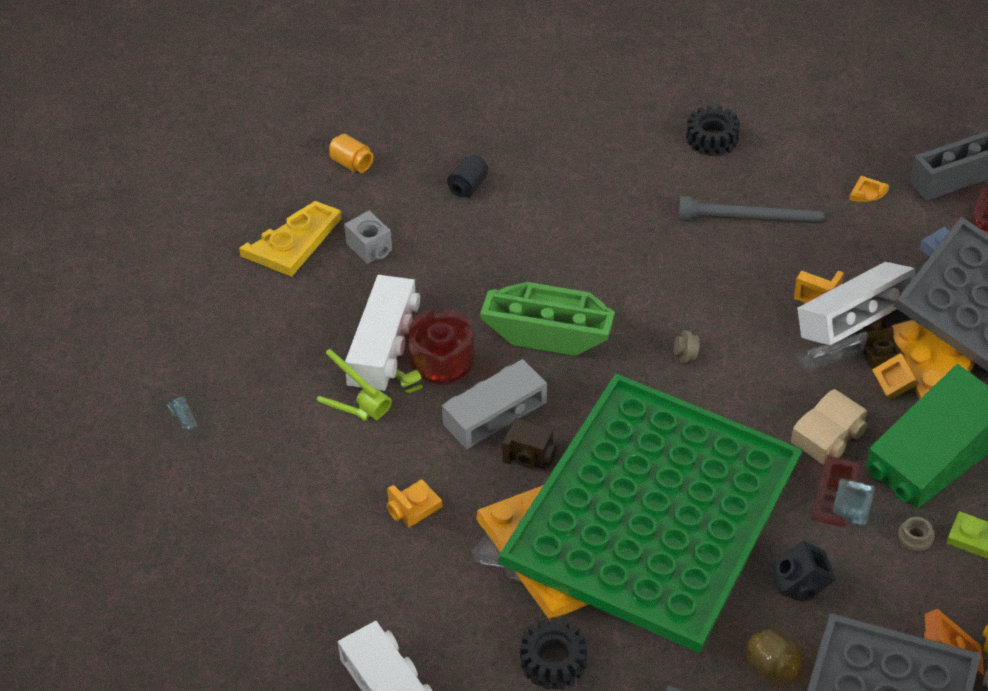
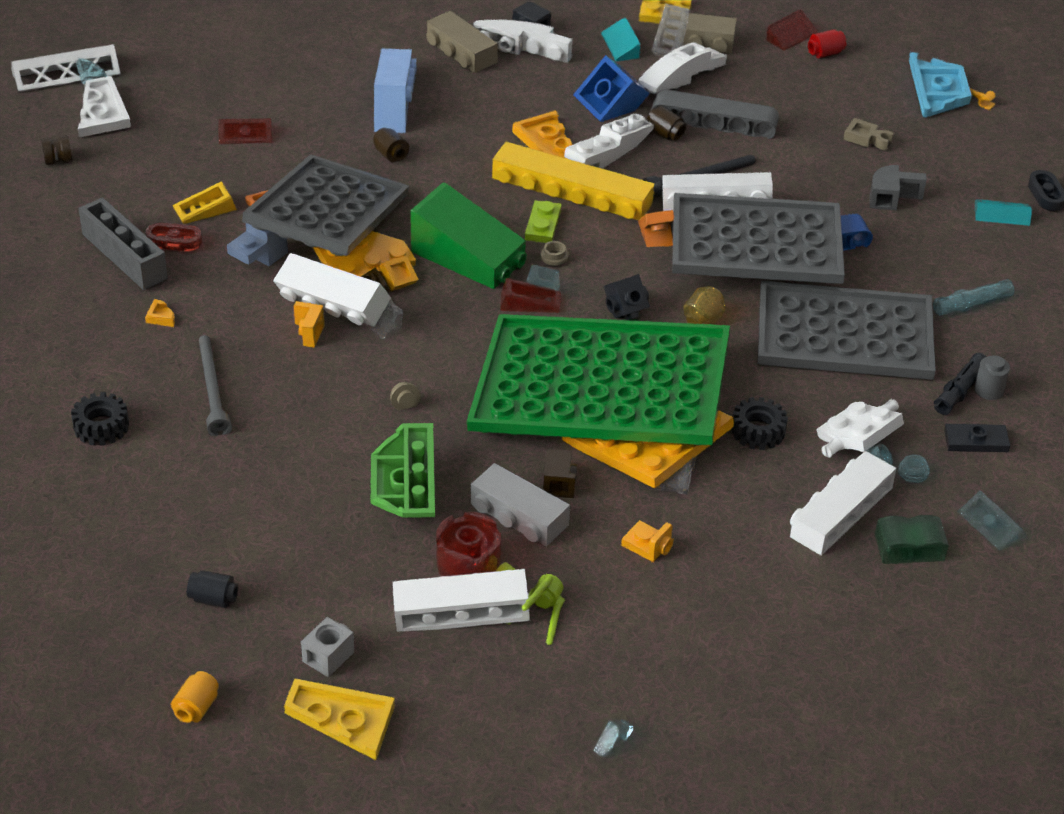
camera: 110 degrees left, 5 degrees down
(829, 426) = (467, 303): tan brick -> none

